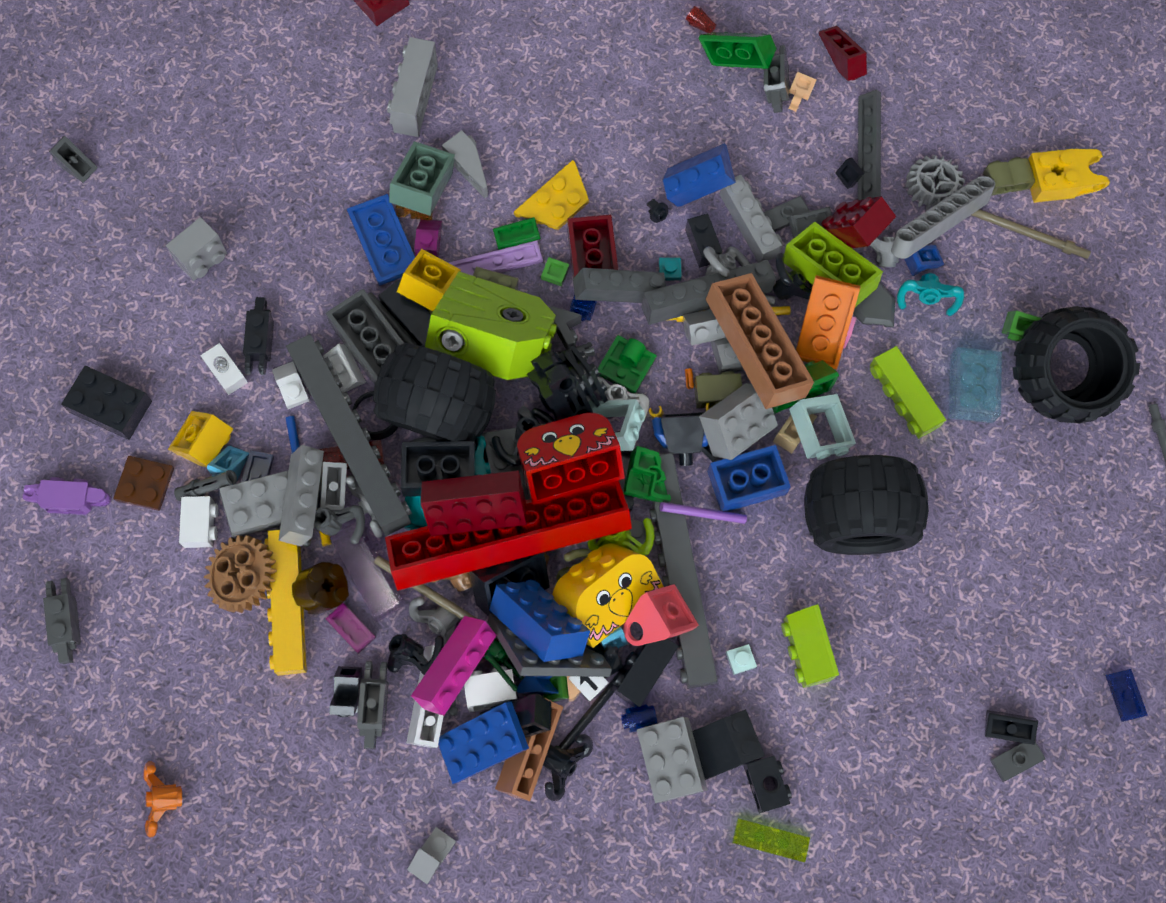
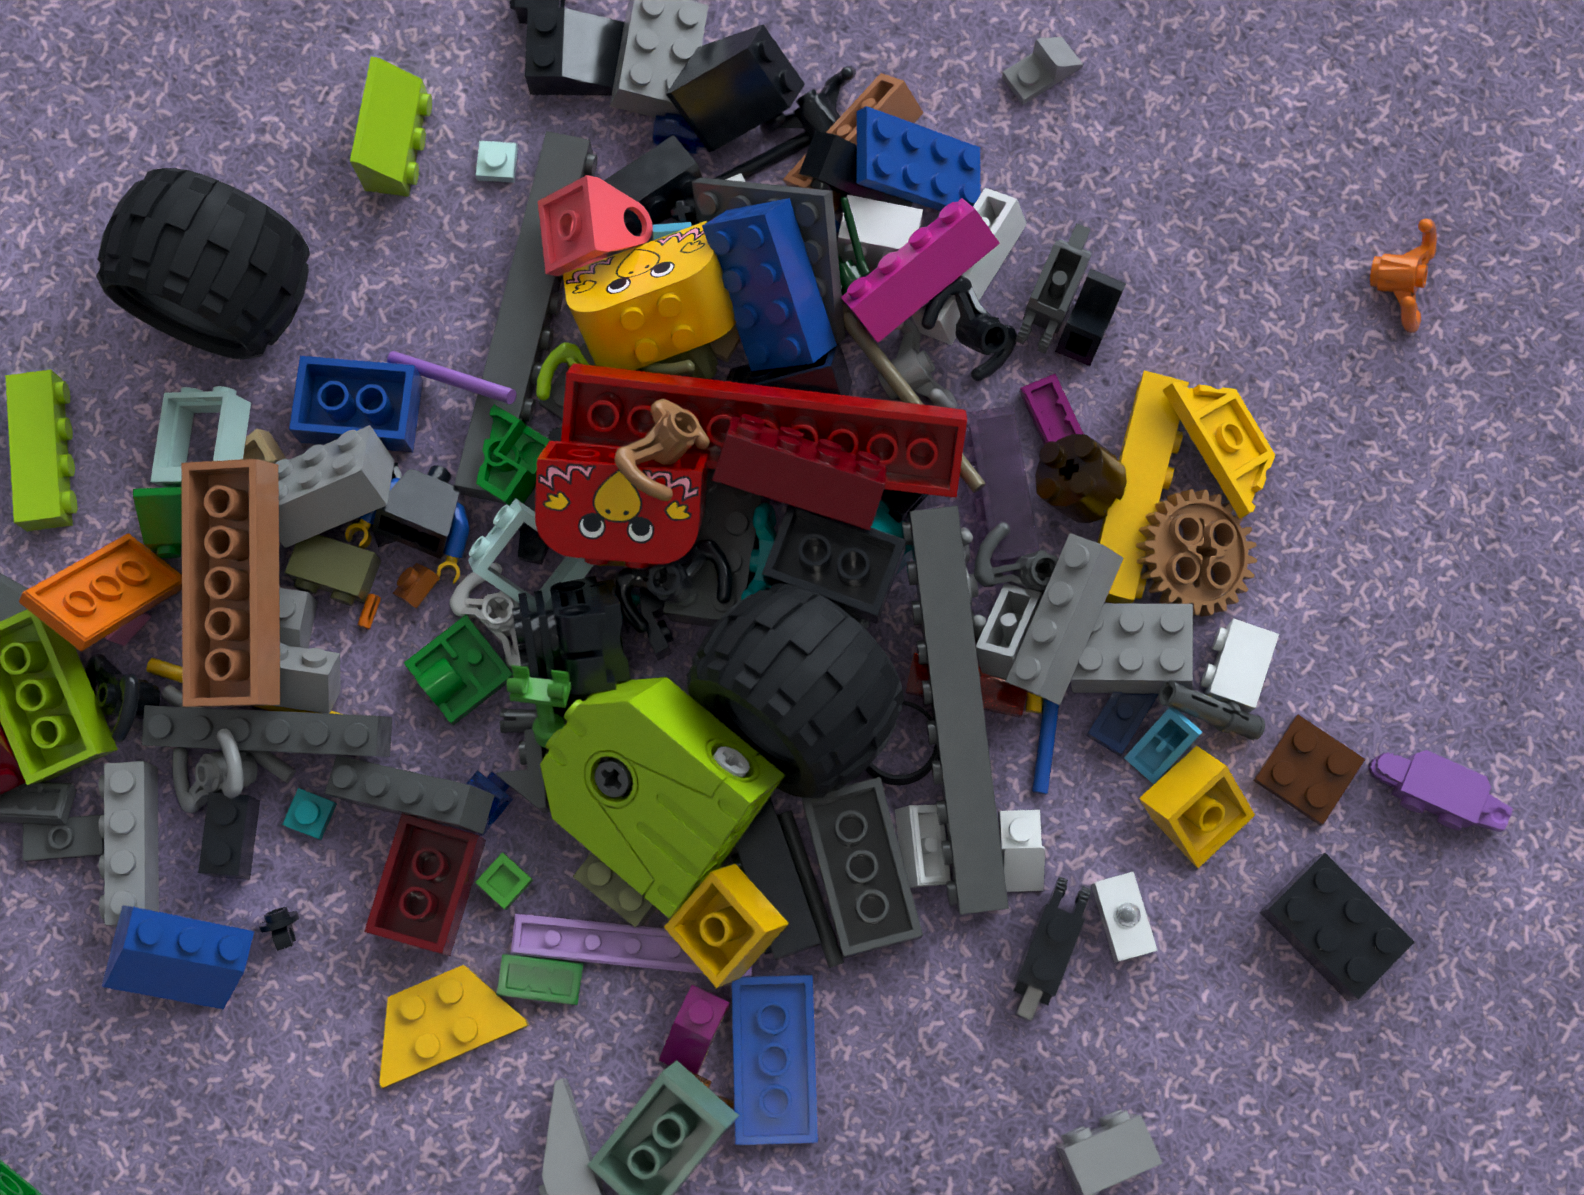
camera: 150 degrees left, 5 degrees up
(61, 621) = (1491, 585): dark grey hinge -> none
(241, 646) = (1226, 440): none -> yellow wing
(553, 483) = (666, 443): none -> medium nougat piece
(563, 343) = (544, 695): none -> bright green bar
(614, 746) = (734, 86): none -> black slope
(669, 397) = (415, 584): none -> dark orange plate

